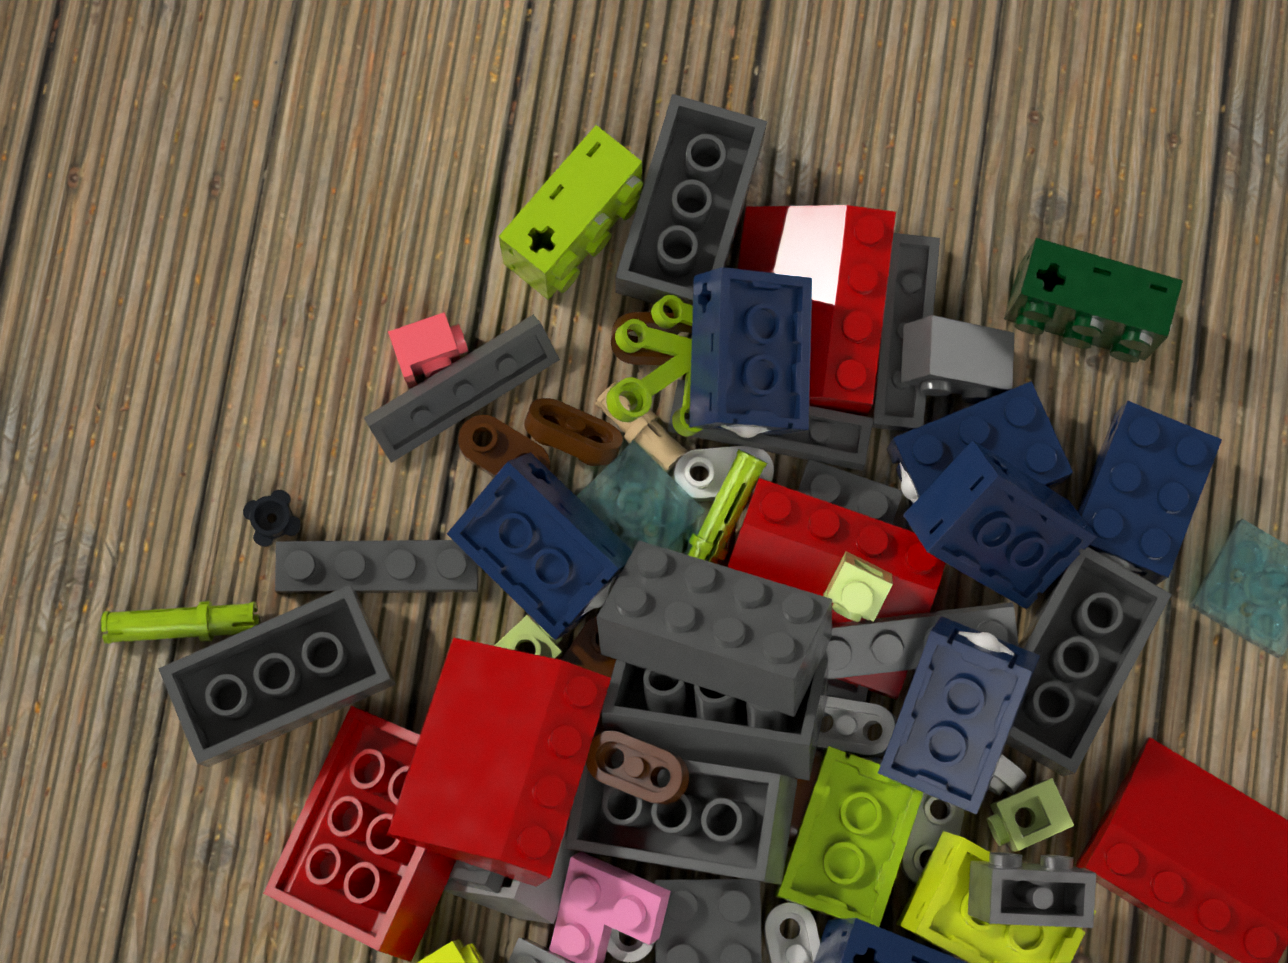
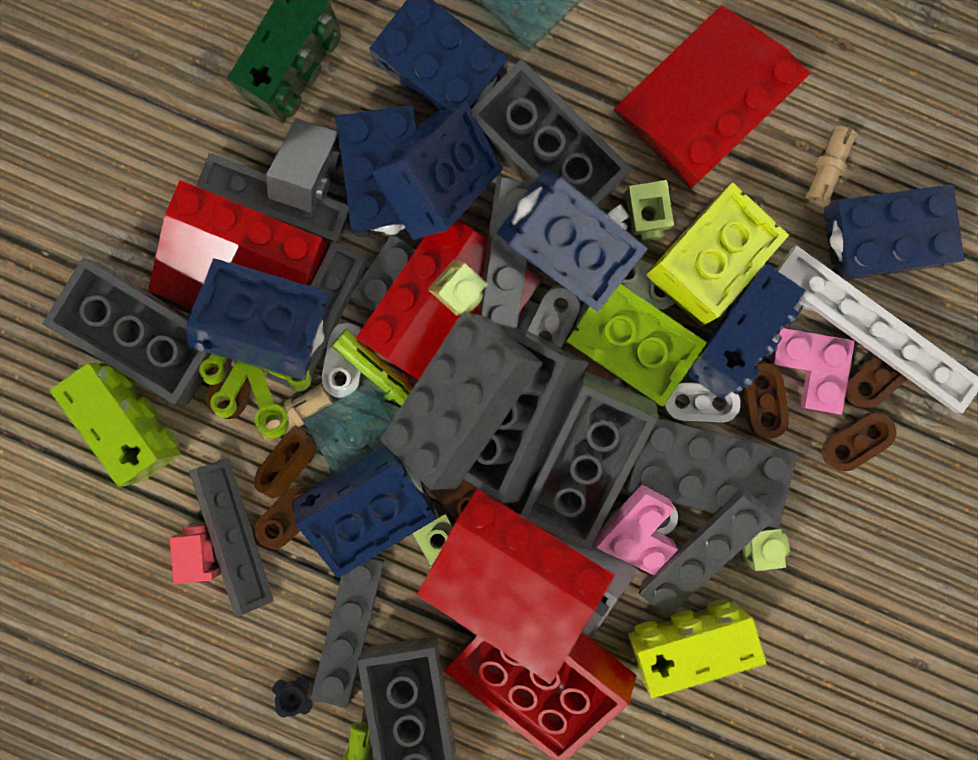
camera: 70 degrees left, 10 degrees up
(639, 768) = (549, 484): reddish brown plate -> none
(1031, 893) = (716, 225): flat silver brick -> none

